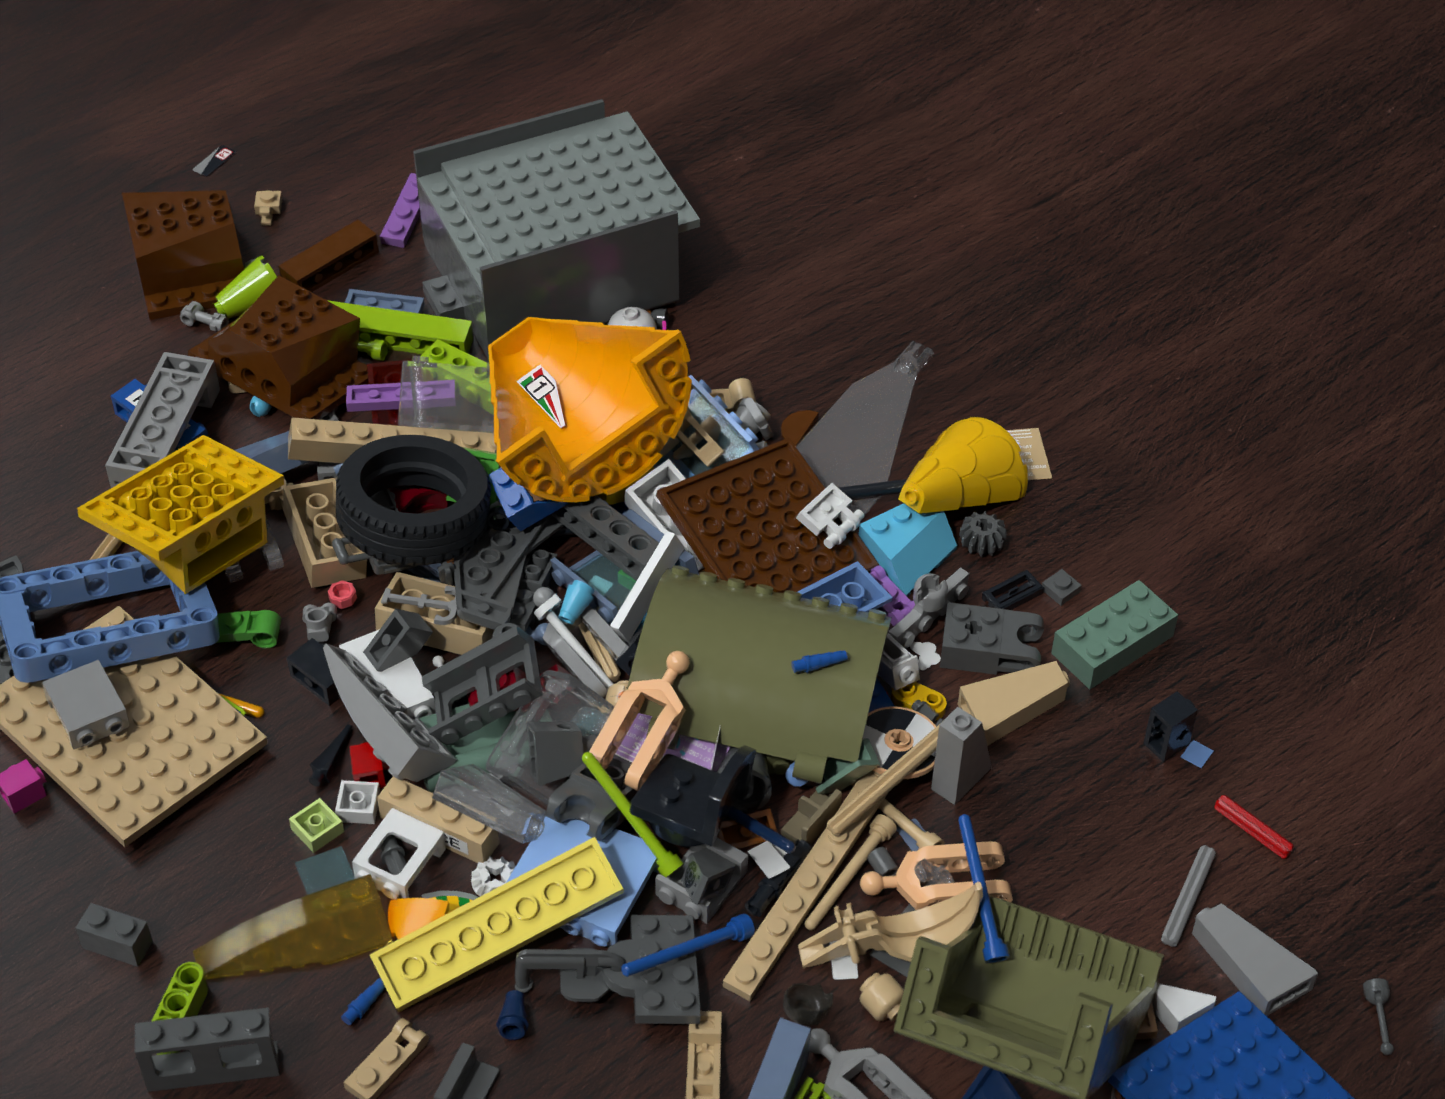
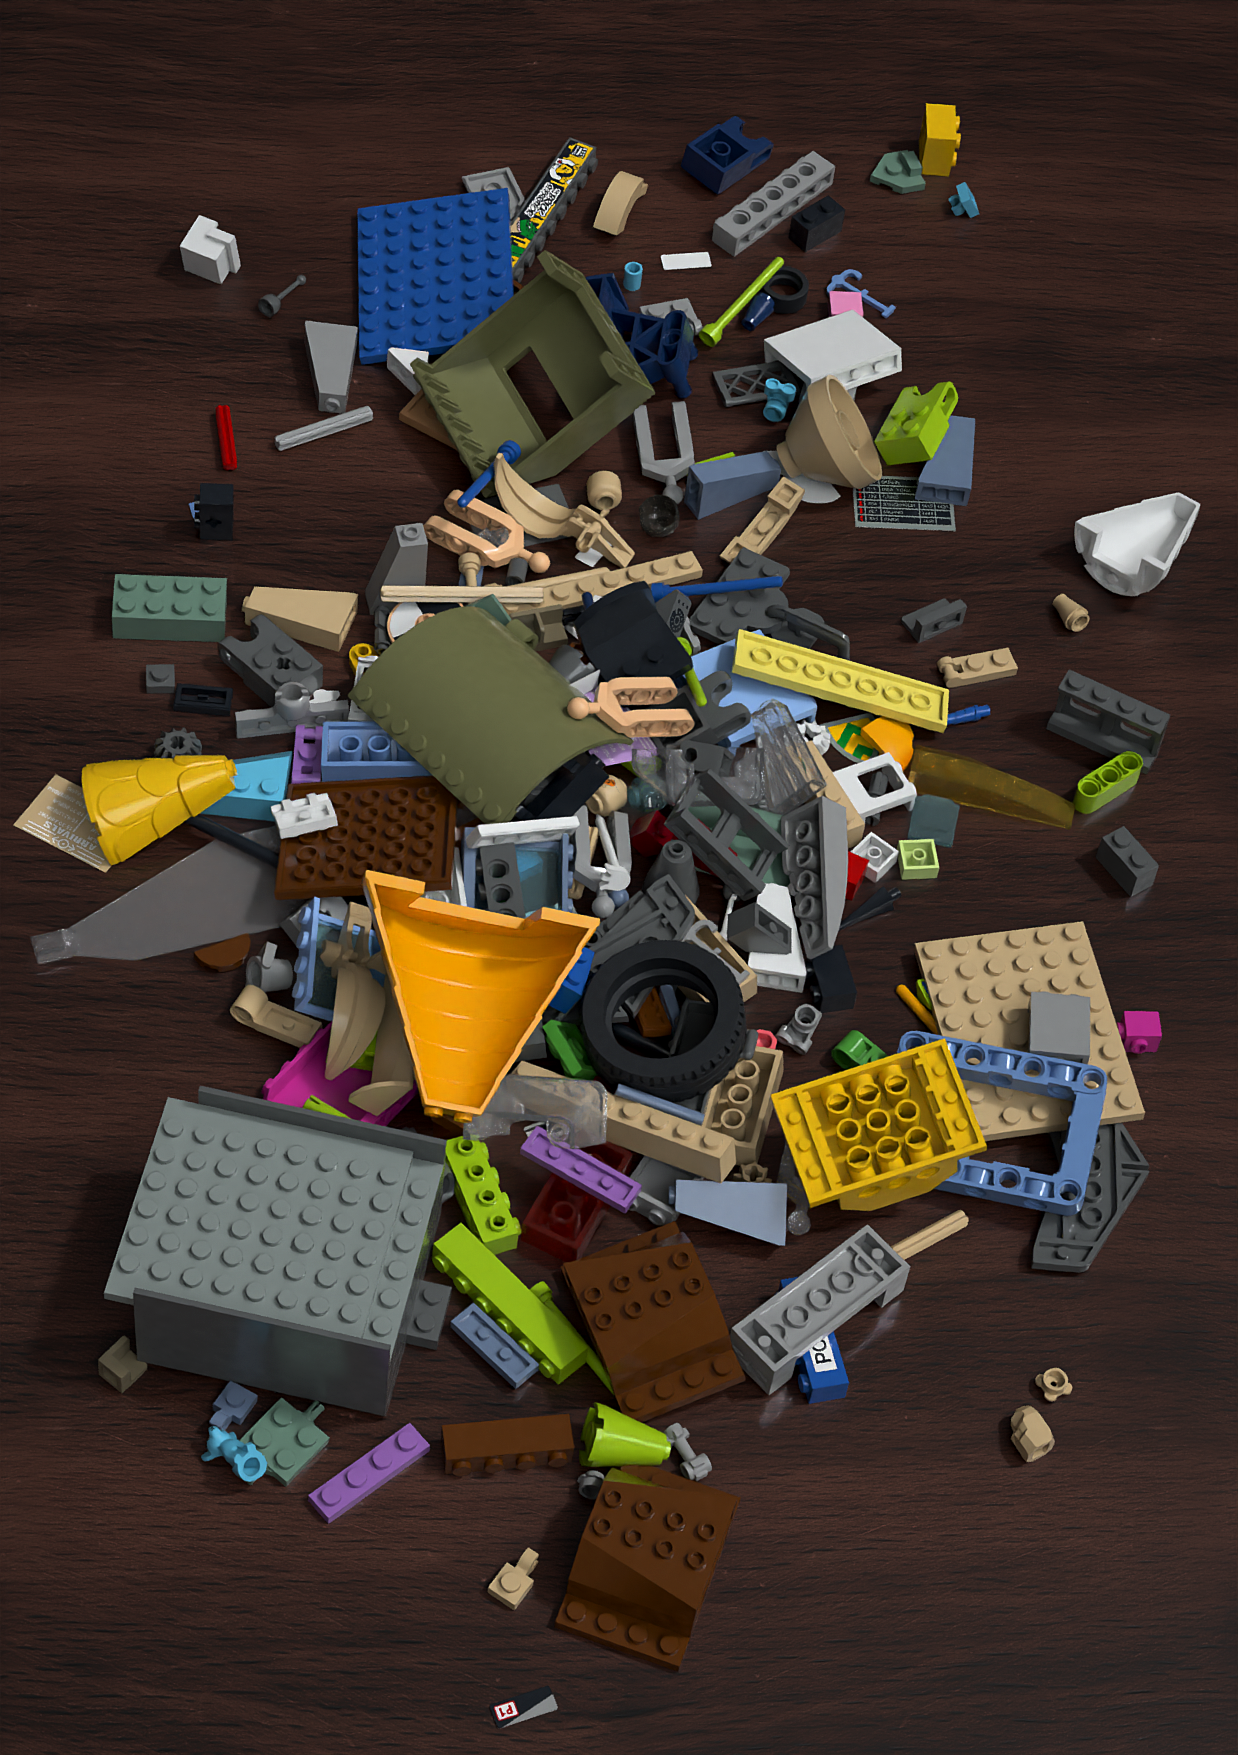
camera: 150 degrees left, 5 degrees up
(513, 1017) = (869, 635): dark blue cone -> none
(544, 392) = (466, 1040): sticker -> none
(575, 601) = (587, 863): medium azure cone -> none
(817, 661) = (468, 644): blue animal -> none

